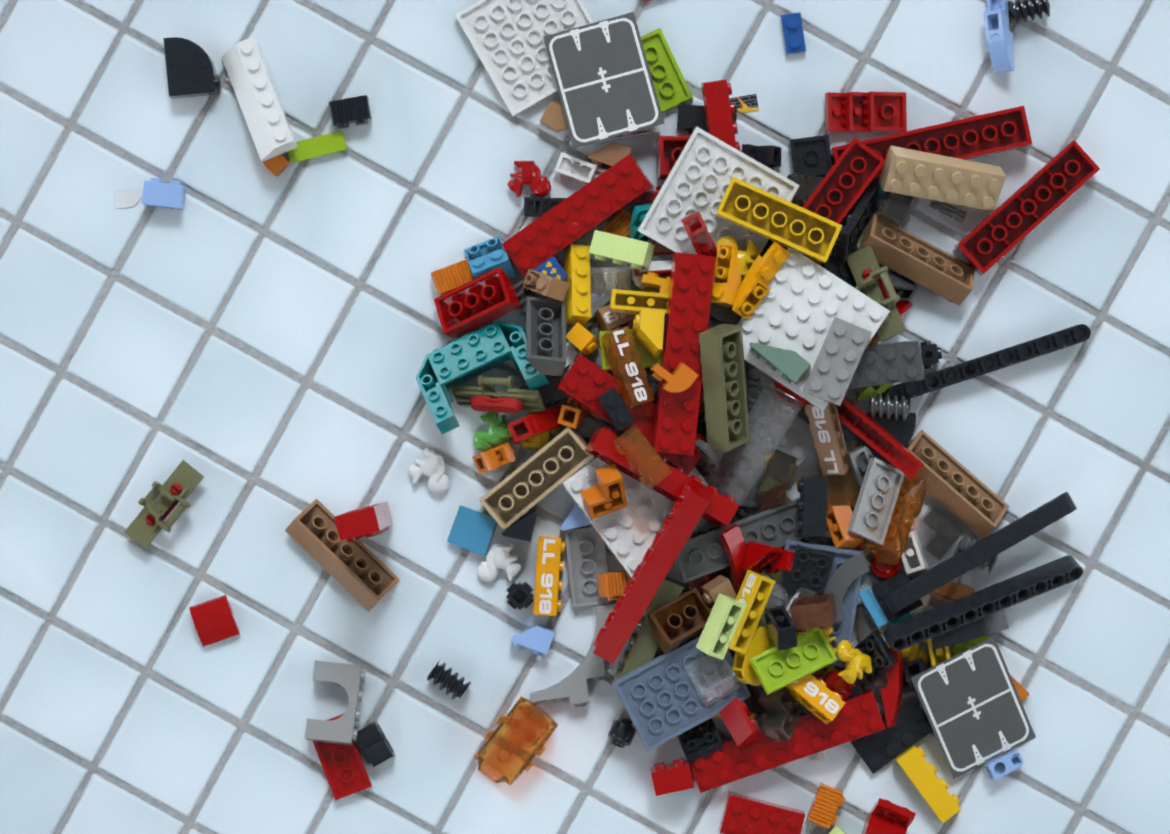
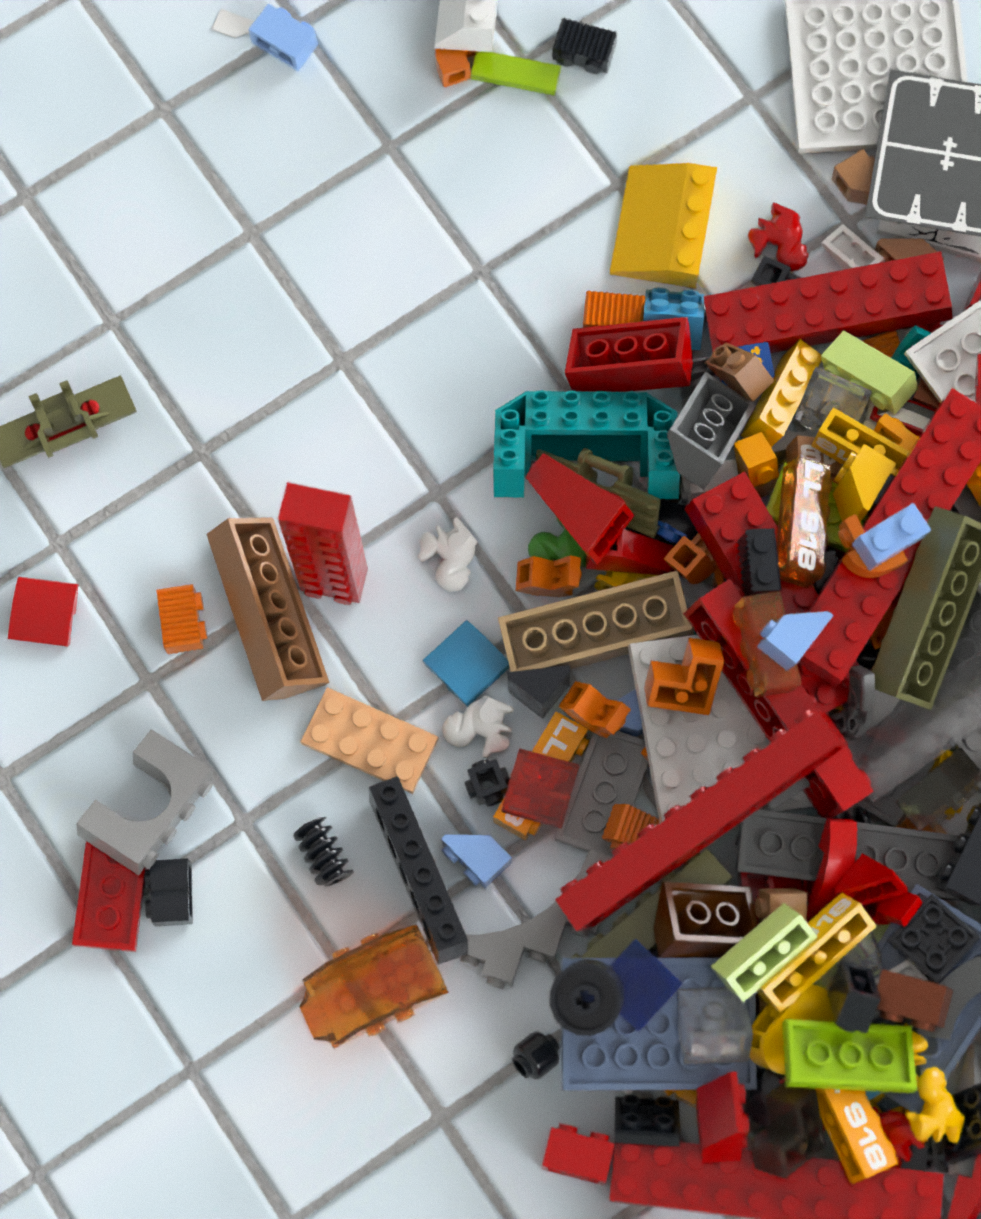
camera: 30 degrees right, 15 degrees down
(296, 586) = (180, 618): none -> orange brick
(440, 602) = (369, 739): none -> light nougat plate
(454, 203) = (664, 223): none -> yellow slope
(495, 418) = (582, 507): none -> red slope
(506, 666) = (418, 870): none -> black brick
(552, 587) = (540, 788): none -> clear red slope
(553, 403) = (669, 533): none -> blue plate
(560, 528) = (594, 710): none -> orange brick
(647, 696) = (573, 1011): none -> black wheel
(655, 450) = (792, 636): none -> light blue slope
(660, 676) = (645, 982): none -> clear blue tile
(684, 370) = (891, 537): none -> light blue brick

